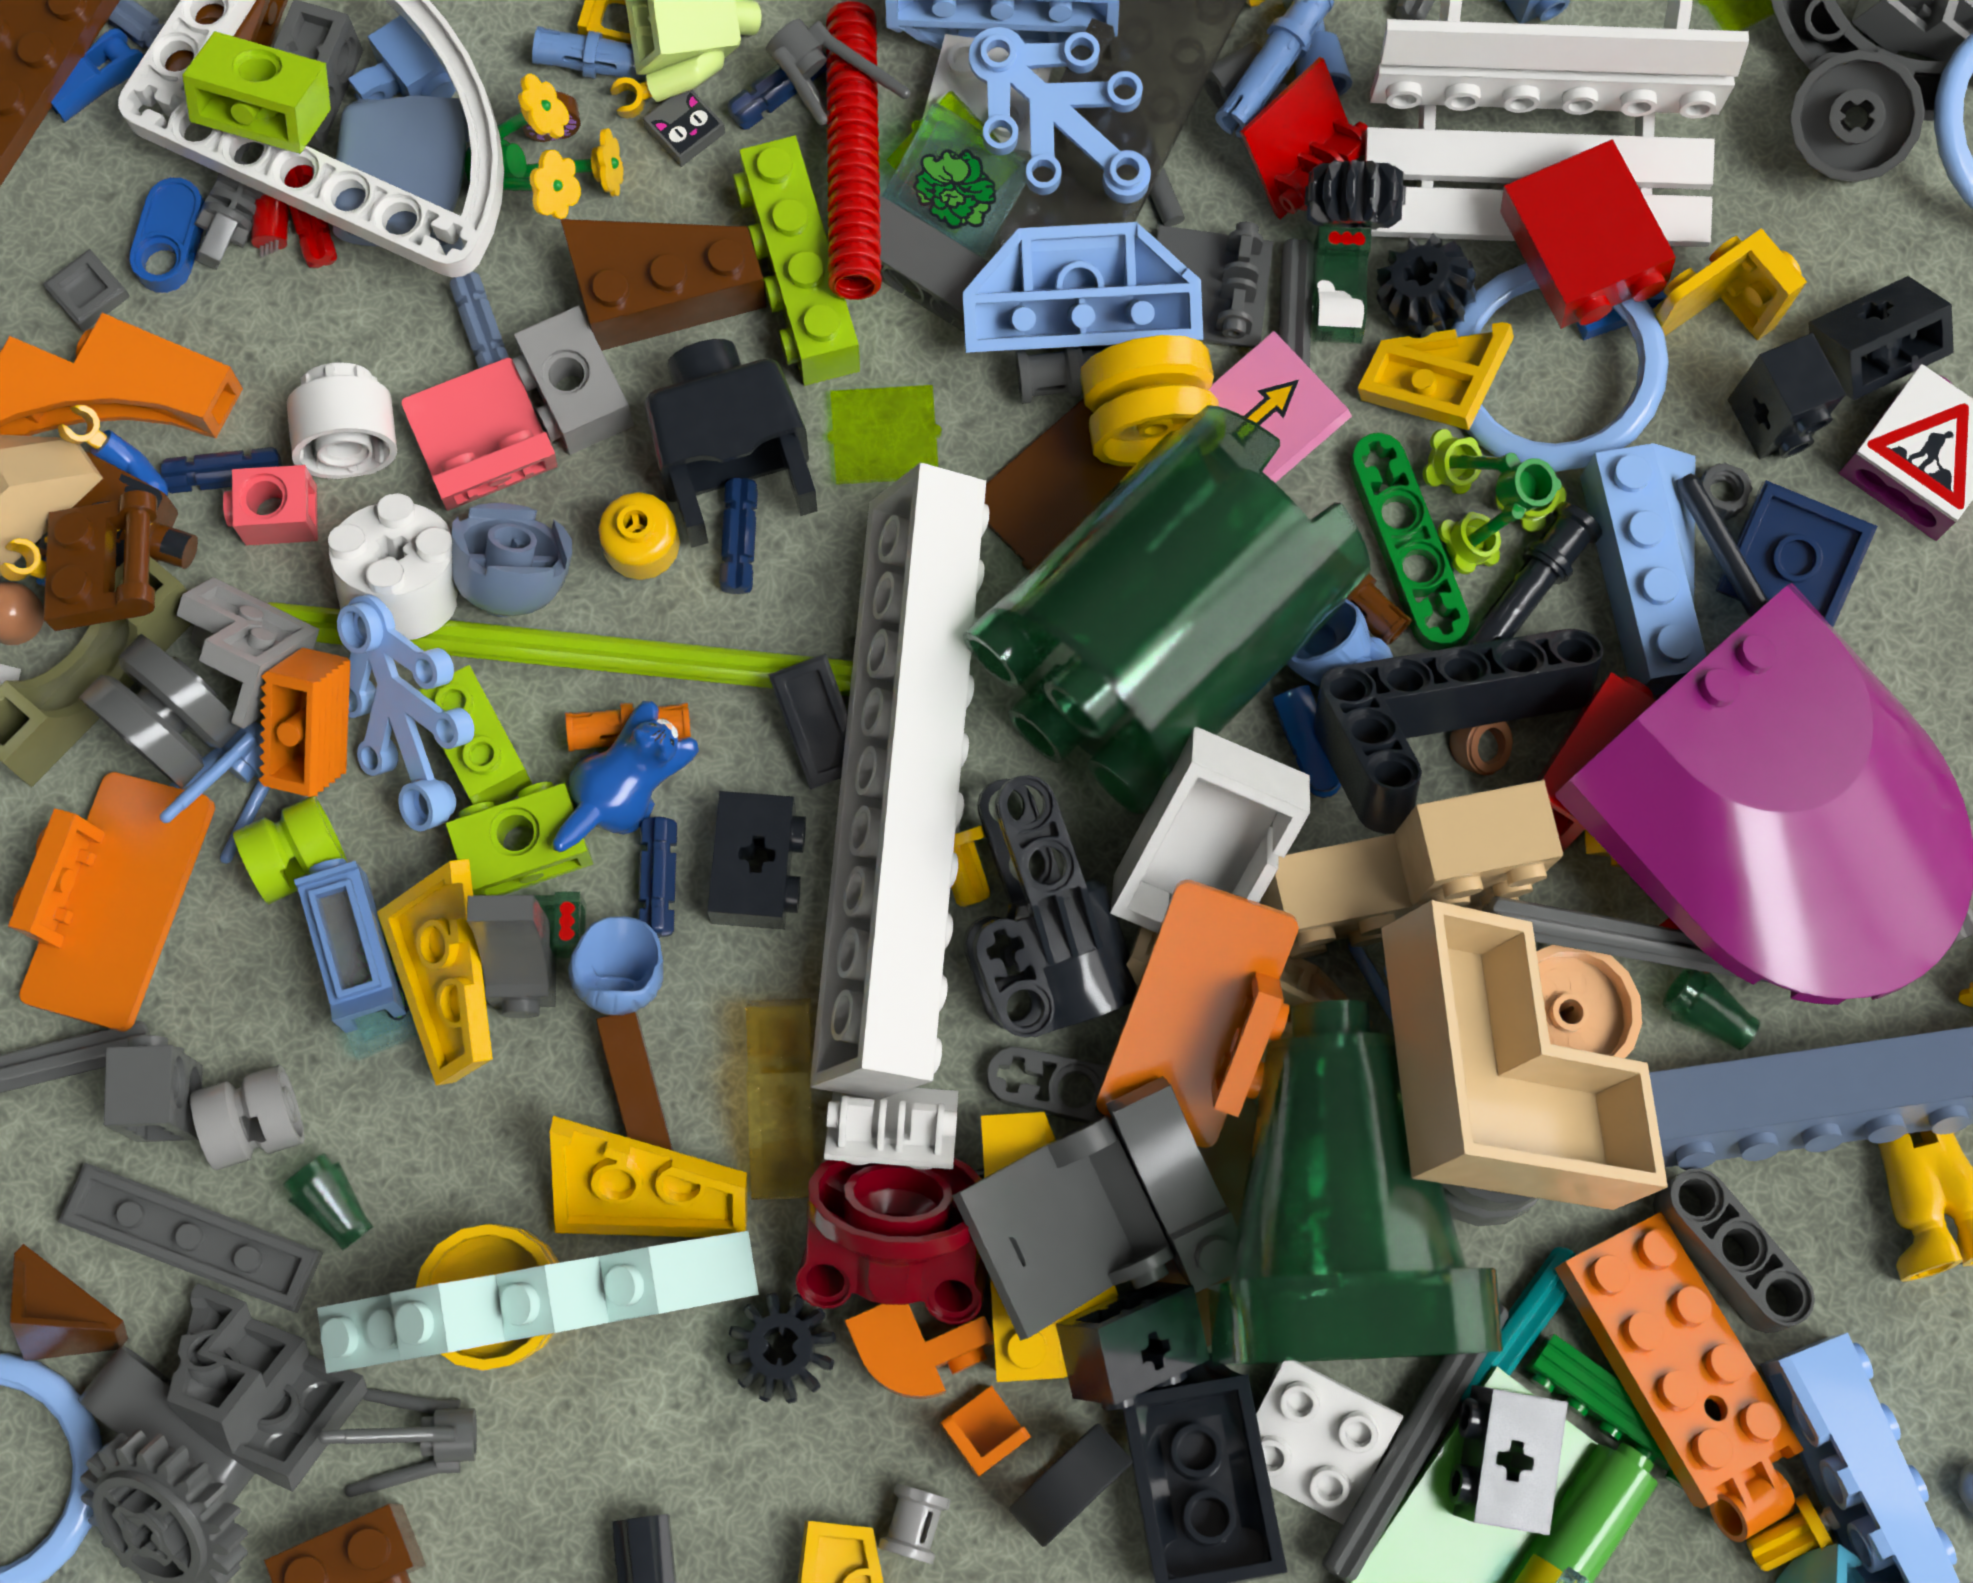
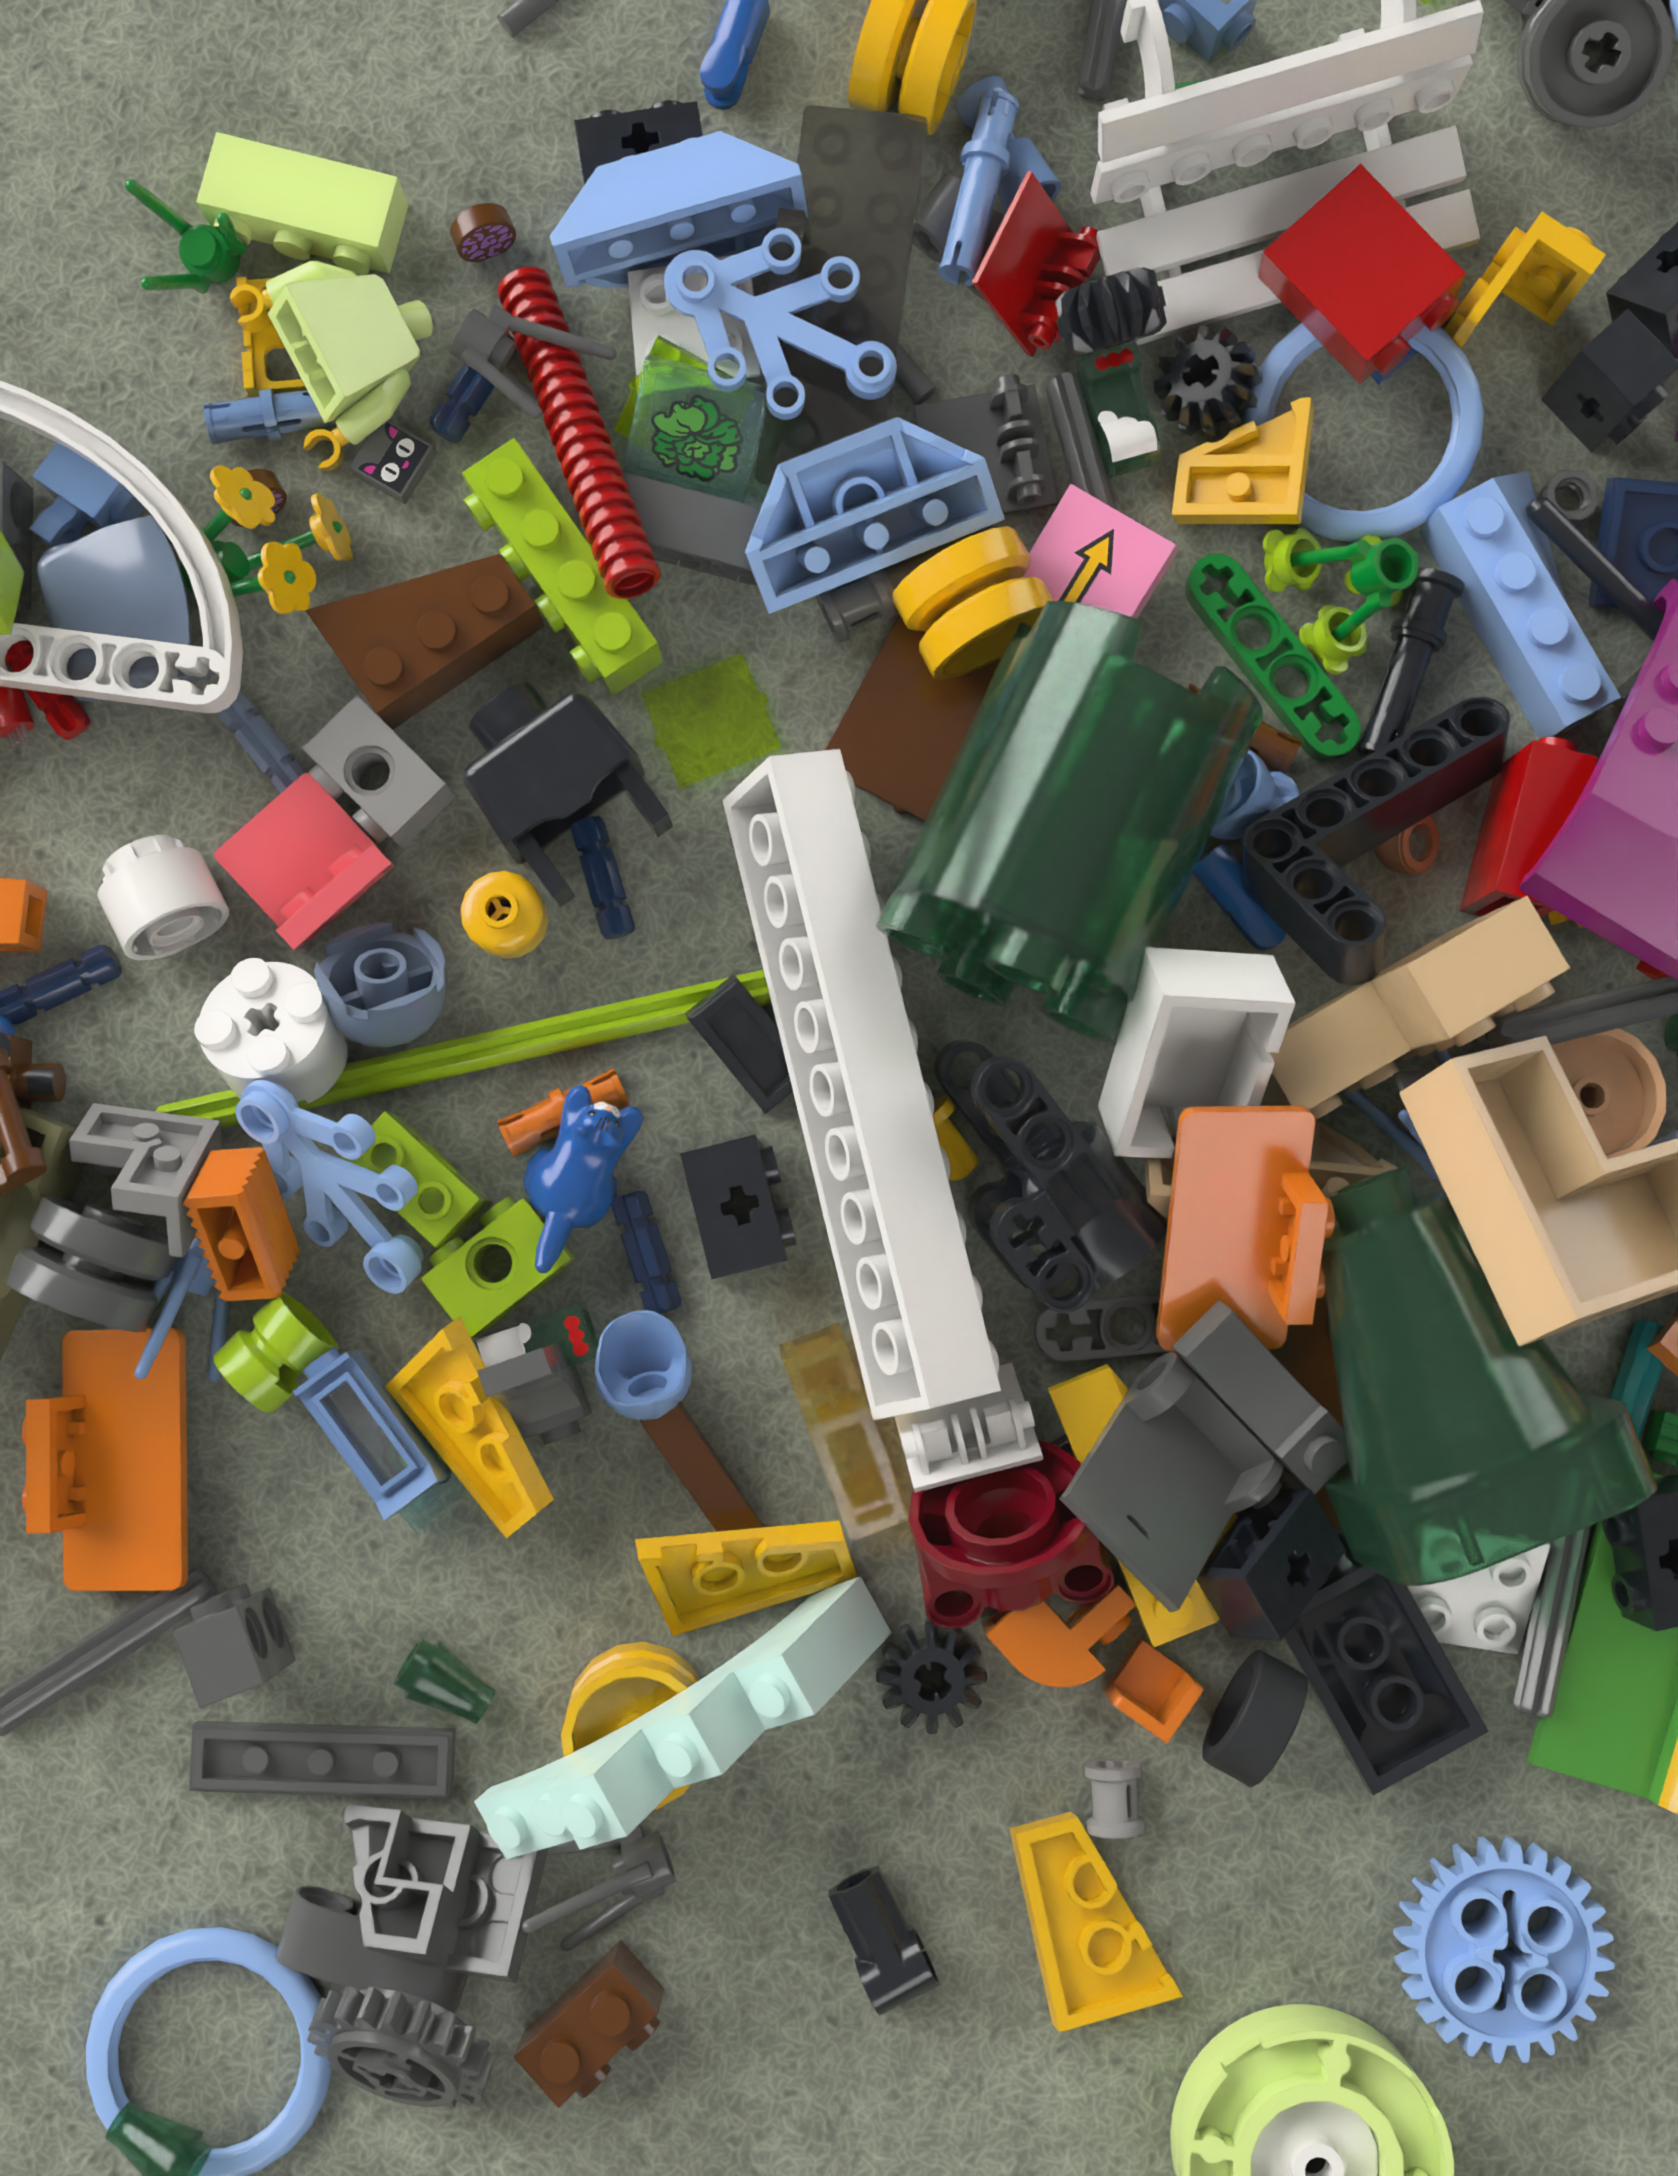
camera: 15 degrees left, 10 degrees up
(56, 1315) = (217, 1884): reddish brown slope -> none
(225, 1113) = (324, 1638): light grey wheel -> none
(294, 518) = (151, 1009): coral brick -> none

